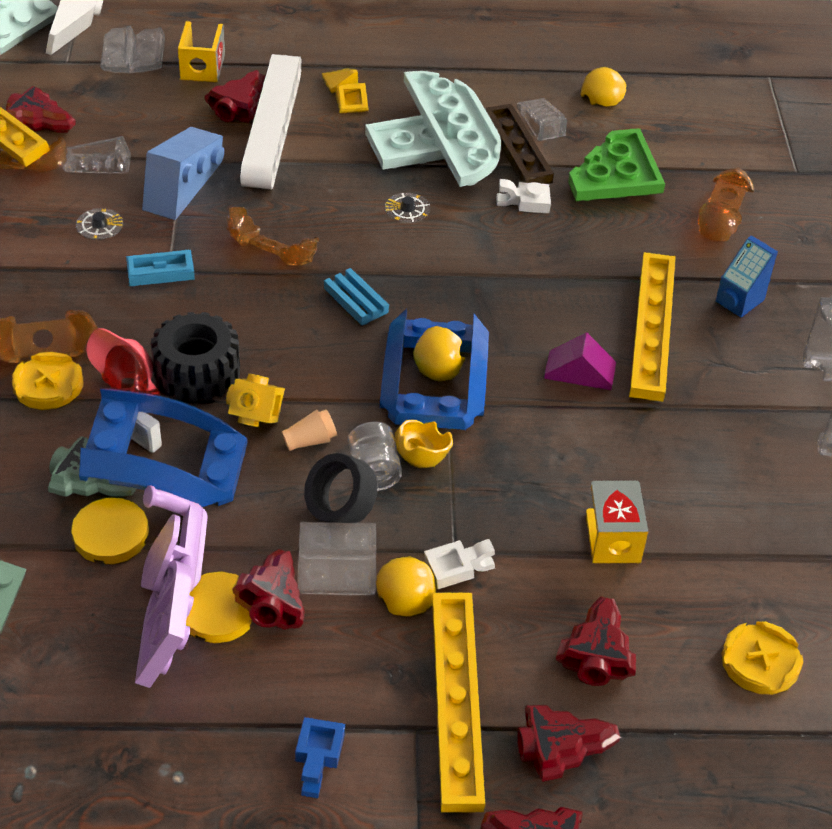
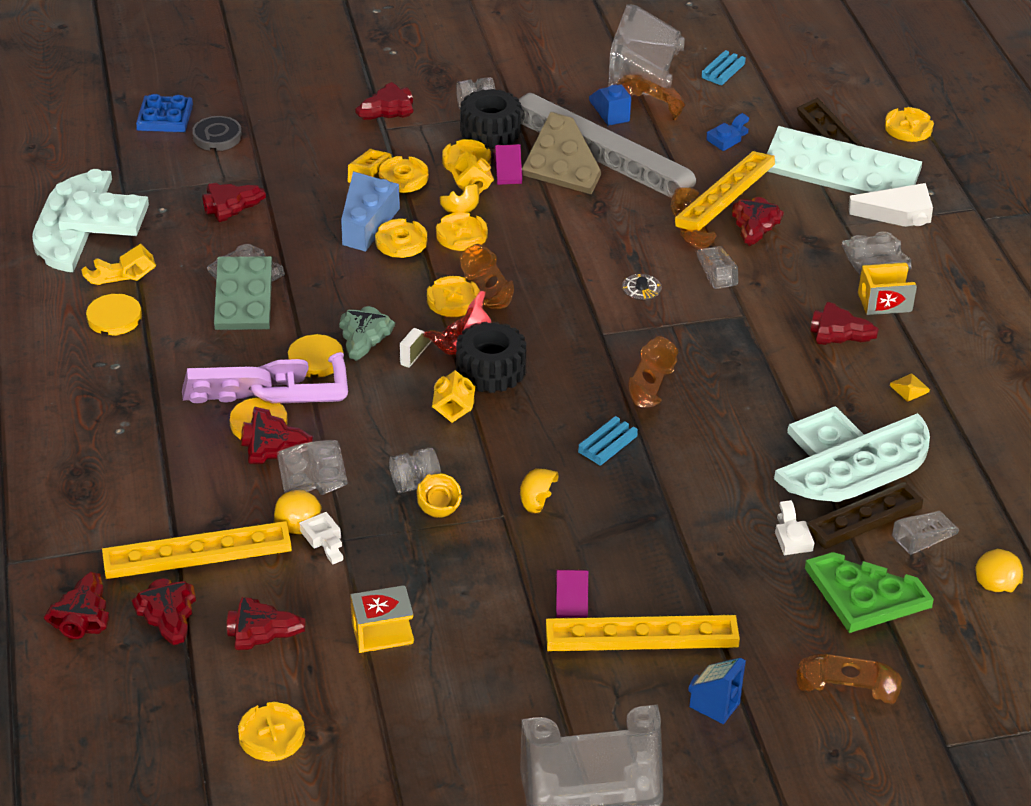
camera: 80 degrees right, 5 degrees down
(111, 434) = (380, 325): blue wedge -> none
(160, 267) = (594, 328): dark azure tile -> none
(179, 170) = (715, 306): medium blue wedge -> none
(271, 122) = (816, 350): white beam -> none
(309, 431) = (440, 437): light nougat cone -> none
(318, 747) = (142, 485): blue plate -> none
(319, 482) = (367, 451): black tyre -> none
(352, 98) = (880, 396): yellow slope -> none
(407, 207) = (746, 459): piece -> none
(446, 410) = (572, 510): blue wedge -> none

